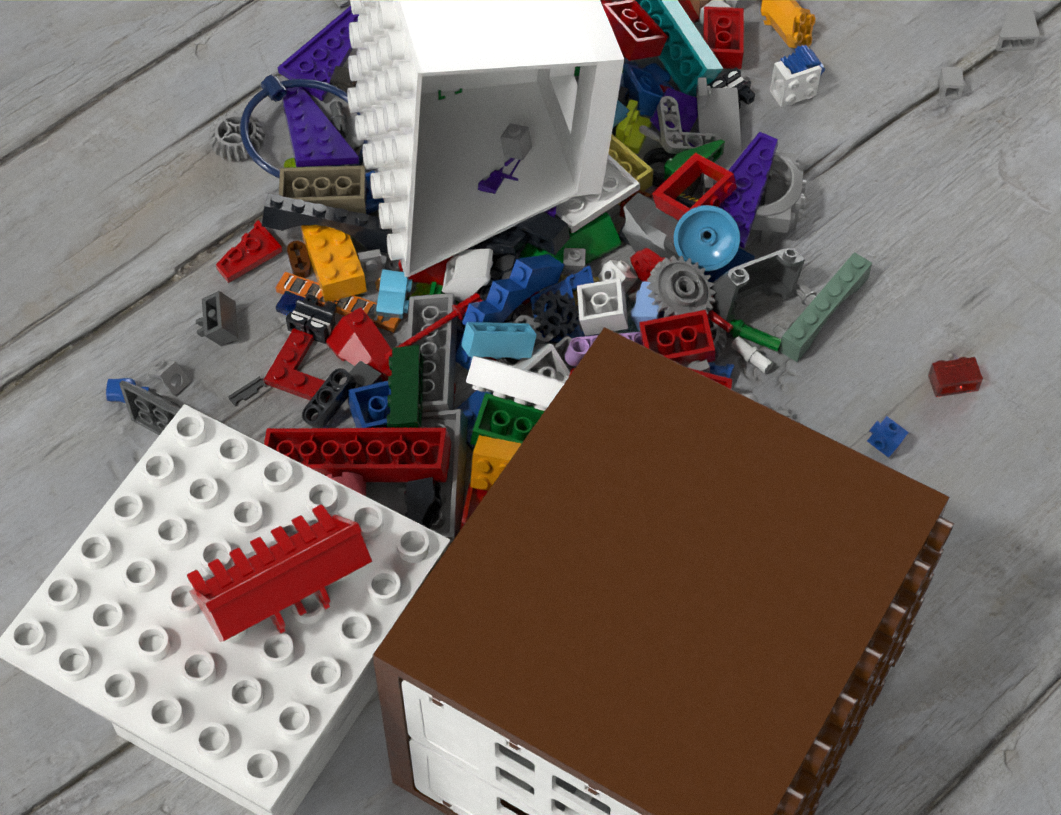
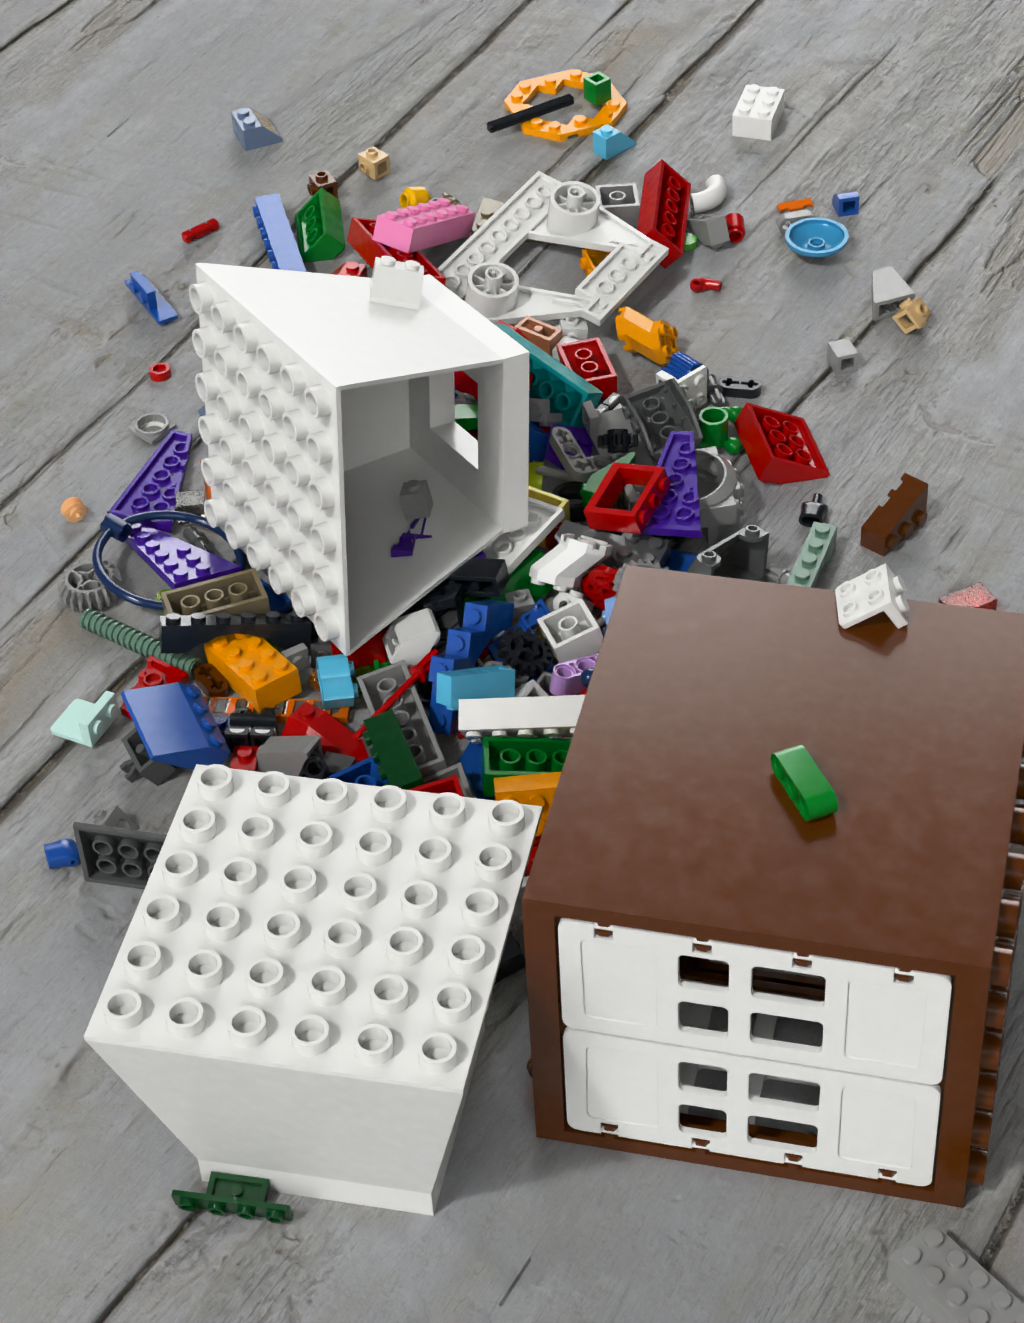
camera: 15 degrees left, 15 degrees down
(134, 760) = (236, 1195): none -> dark green bracket
(185, 267) = (87, 721): none -> light aqua bracket
(248, 300) = (176, 725): none -> blue slope
(250, 199) = (135, 640): none -> sand green piece
(251, 57) = (73, 509): none -> light nougat wheel
(279, 574) = (384, 870): red piece -> none
(329, 354) = (288, 753): none -> light grey slope
(625, 237) = (569, 562): none -> white brick
(658, 617) = (804, 783): none -> green beam
(663, 74) = (540, 412): none -> light grey bracket
(708, 252) = (672, 521): dark azure dish -> none
(715, 123) = (617, 440): none -> black gear
(762, 108) = (658, 412): none -> dark grey slope
(802, 433) = (871, 594): none -> white bracket
(806, 127) = (714, 428): none -> green wheel
(825, 87) = (714, 391): none -> dark grey axle
(849, 89) = (740, 387): none -> black beam
(859, 161) = (779, 446): none -> red slope
(862, 236) = (813, 511): none -> black piece
(929, 268) = (897, 518): none -> reddish brown wedge
(1029, 57) = (912, 315): none -> tan brick

